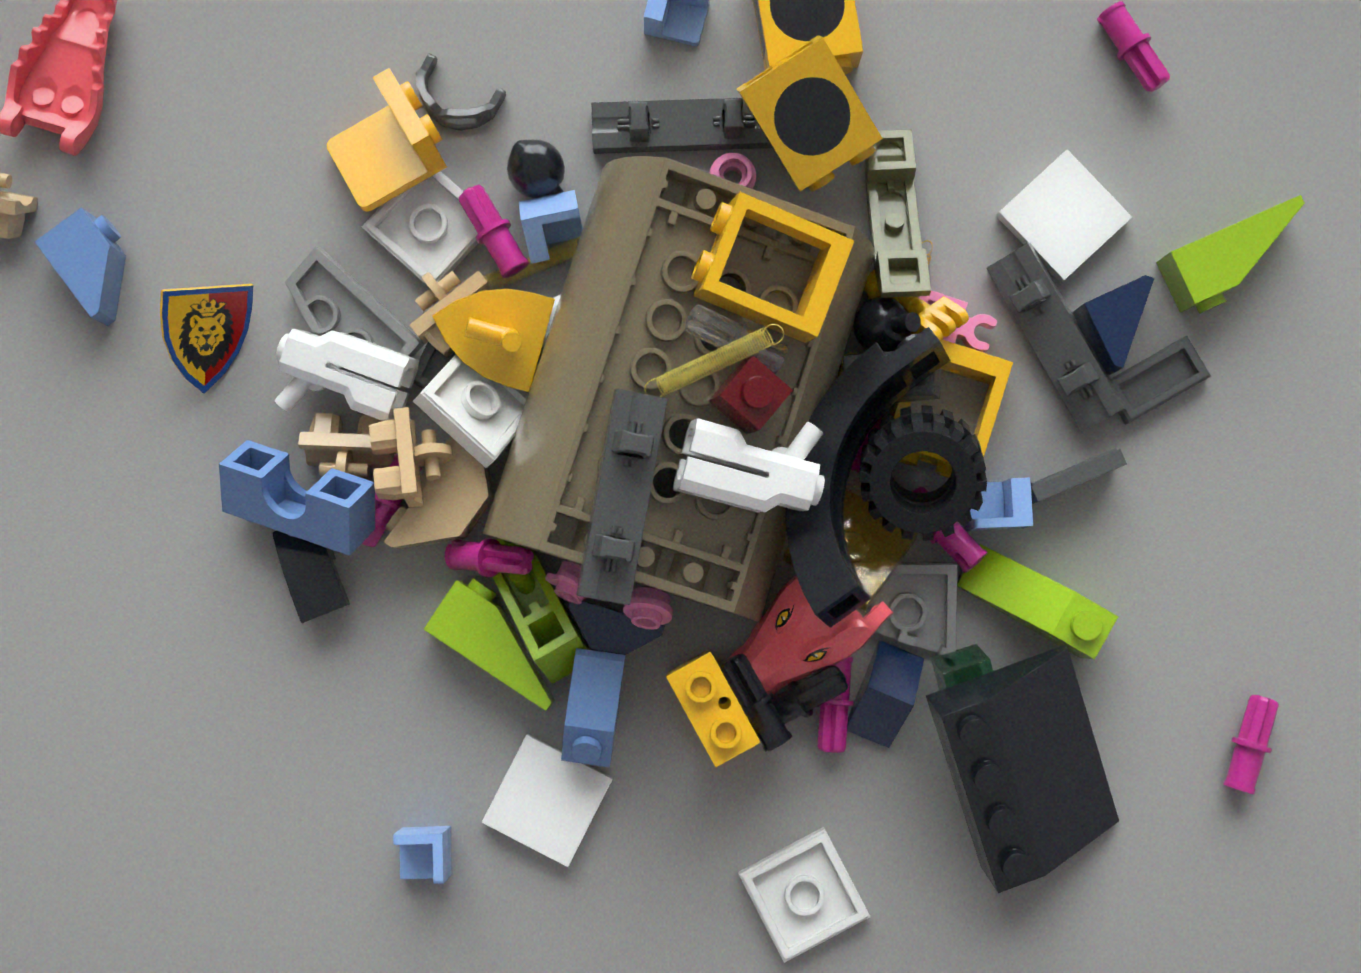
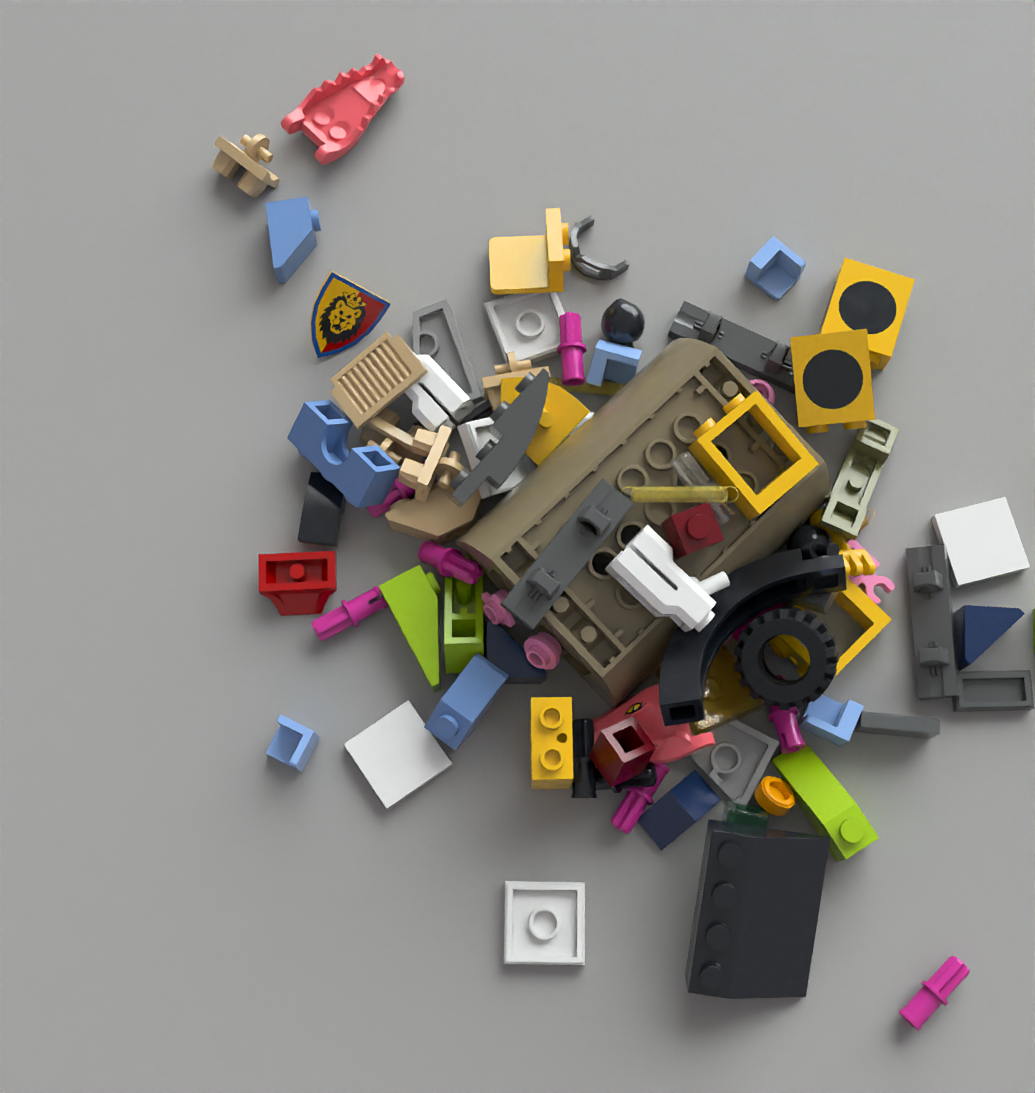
camera: 30 degrees right, 10 degrees down
(286, 390) = (376, 378): none -> tan window
(327, 667) = (298, 581): none -> red slope
(405, 675) = (348, 614): none -> dark pink axle
(482, 371) = (514, 428): none -> dark grey slope
(796, 677) = (622, 751): none -> dark red brick
(981, 625) = (774, 795): none -> light orange tile

